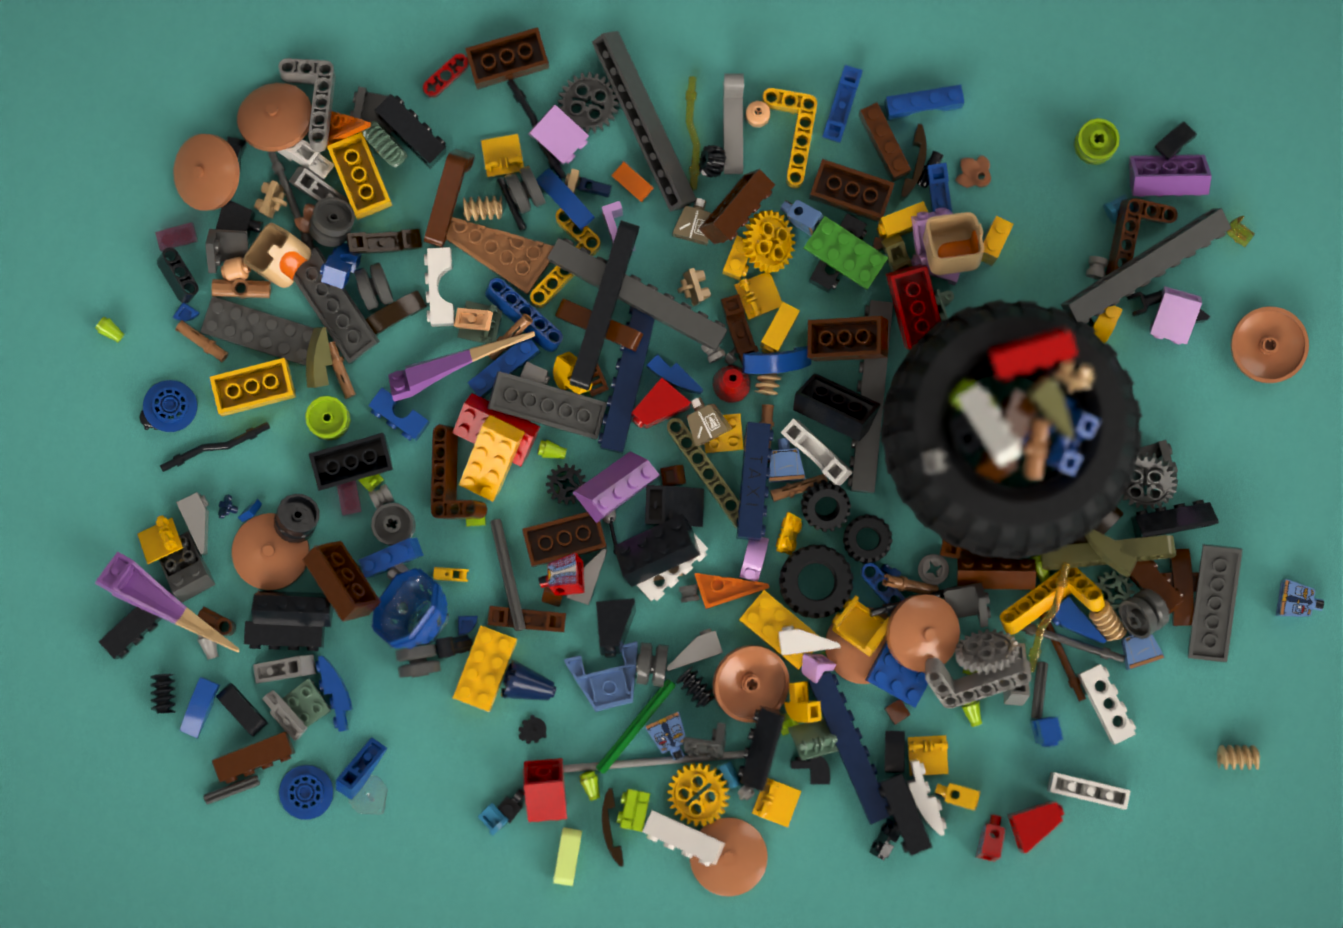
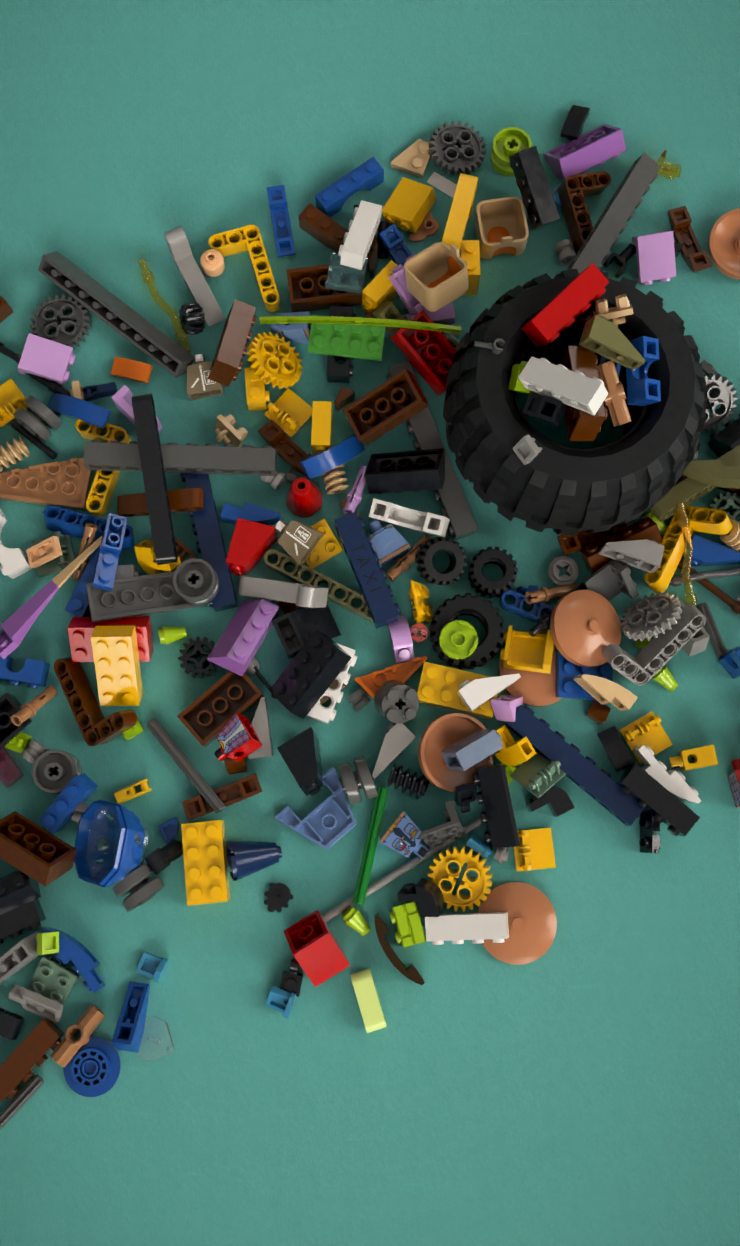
camera: 25 degrees left, 5 degrees down
(319, 755) = (69, 1045): none -> medium nougat piece
(320, 669) = (47, 943): none -> lime tile
(396, 458) = (29, 709): none -> medium nougat pin
(396, 734) = (152, 966): none -> dark azure tile
(531, 351) = (109, 552): none -> blue slope
(592, 406) = (206, 581): none -> dark grey wheel
(662, 794) = (427, 896): none -> black brick
(689, 479) = (301, 594): none -> light grey beam
(721, 613) = (405, 698): none -> dark grey brick
(739, 725) = (464, 795): none -> black plate
(765, 688) = (472, 749): none -> sand blue brick
(773, 560) = (419, 632): none -> tile
(777, 407) = (354, 497): none -> lavender pin
(803, 586) = (458, 639): none -> lime tile
(815, 307) = (344, 397): none -> reddish brown slope
(863, 248) = (360, 321): none -> lime piece
(876, 191) = (344, 277): none -> clear light blue slope
(907, 163) = (360, 235): none -> white brick
(912, 698) = (606, 691): none -> tan slope
(951, 352) = (492, 346): none -> dark grey hand
(971, 148) = (409, 205): none -> yellow brick
(1003, 100) = (413, 159): none -> tan wing
(1005, 590) = (637, 553): none -> light grey slope
(1008, 189) = (460, 210): none -> yellow beam
(1017, 139) = (442, 184): none -> white sticker
(1044, 128) = (460, 142): none -> dark grey gear
(1045, 215) = (501, 227): none -> tan piece
(1093, 196) = (534, 187): none -> black slope
(1219, 313) = (683, 233): none -> reddish brown slope

